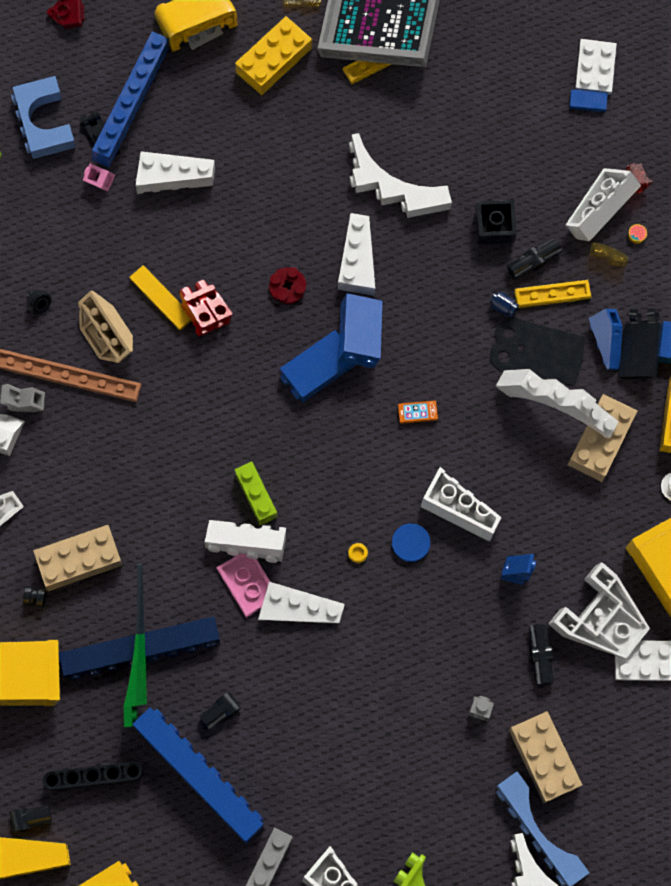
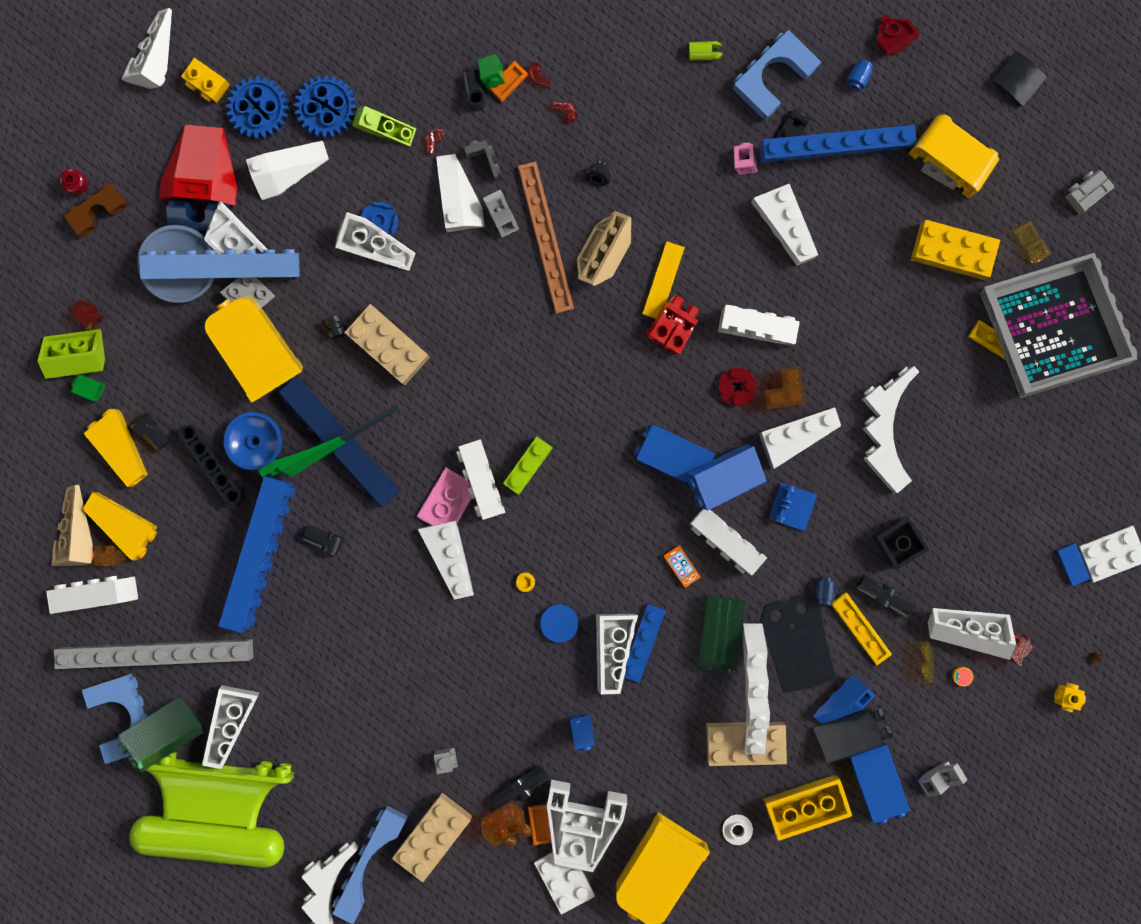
camera: 70 degrees right, 15 degrees up
(83, 714) = (240, 437): none -> blue dish
(84, 53) = (860, 74): none -> blue brick
(245, 240) = (758, 325): none -> white wedge
(316, 243) = (790, 391): none -> clear orange brick
(416, 294) = (792, 506): none -> blue hinge
(417, 360) = (728, 541): none -> white wedge
(467, 478) = (643, 642): none -> blue plate
(494, 408) = (721, 633): none -> clear green brick
(566, 683) = (504, 824): none -> clear orange brick
(583, 656) = (540, 824): none -> orange tile

